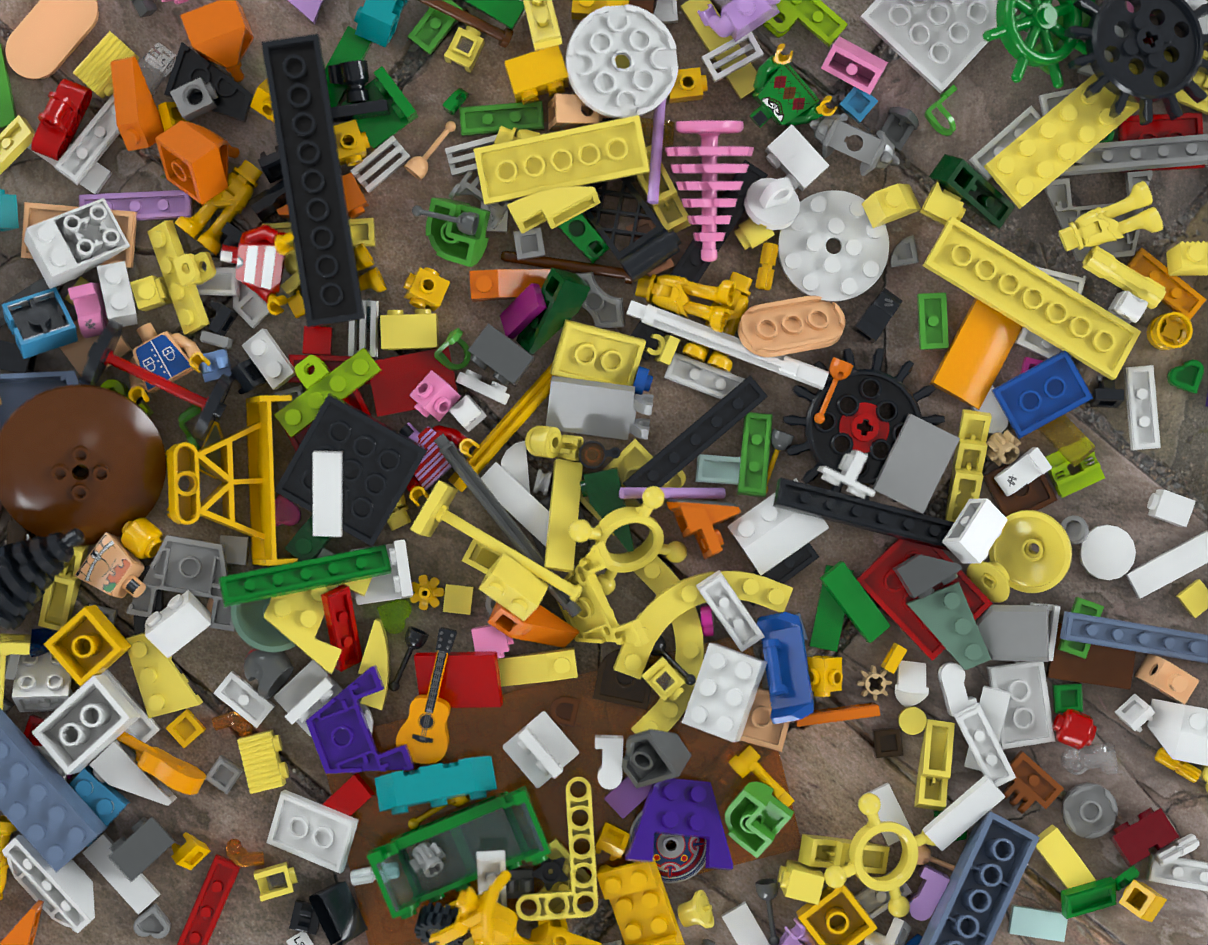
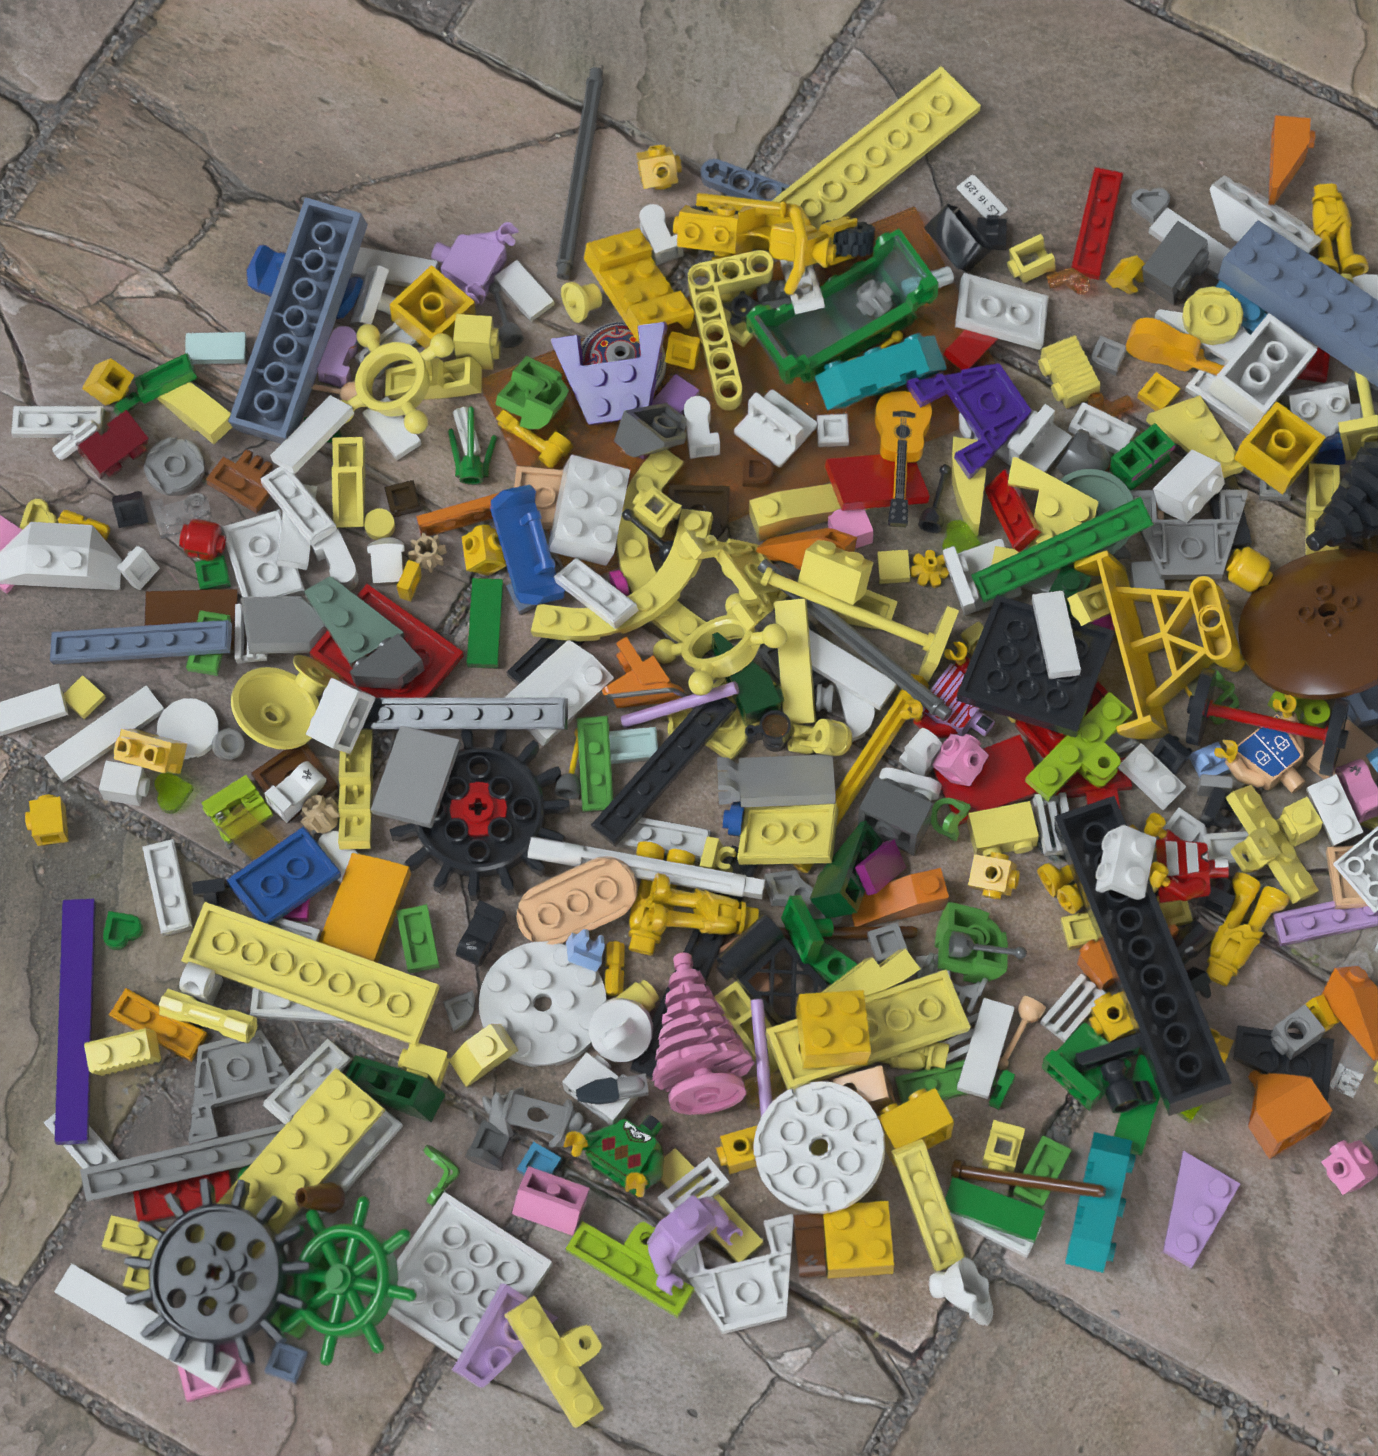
camera: 175 degrees right, 20 degrees down
(112, 568) = (1272, 530): light nougat torso -> none
(120, 788) = (1212, 315): none -> light yellow tile
(195, 160) = (1277, 965): orange piece -> none
(214, 658) = (1142, 457): none -> green hips
(291, 519) = (1089, 604): none -> light yellow plate
(311, 257) = (1125, 862): none -> white bracket
(462, 136) = (985, 1048): none -> white tile
(489, 739) = (832, 430): none -> white tile
(593, 154) = (833, 1029): none -> yellow brick
(598, 263) = (804, 930): none -> green tile
(789, 148) = (611, 1089): none -> piece
(791, 282) = (585, 951): none -> light blue tile
(819, 792) = (461, 418): none -> white piece
(821, 759) = (471, 469): none -> green plant
(839, 371) = (516, 860): orange hinge -> none
(851, 466) = (490, 743): white bracket -> none
(855, 601) = (460, 629): green tile -> none
(1045, 206) = (305, 1080): none -> white tile
(1047, 99) = (321, 1197): none -> reddish brown cone
(1099, 226) = (244, 1066): light yellow piece -> none
(1128, 496) = (172, 792): none -> clear neon green tile
(1135, 772) = (130, 509): none -> black tile
(1146, 530) = (150, 751): none -> yellow hips
(1167, 679) = (102, 604): light nougat torso -> none
(1169, 331) = (148, 968): yellow wheel -> none

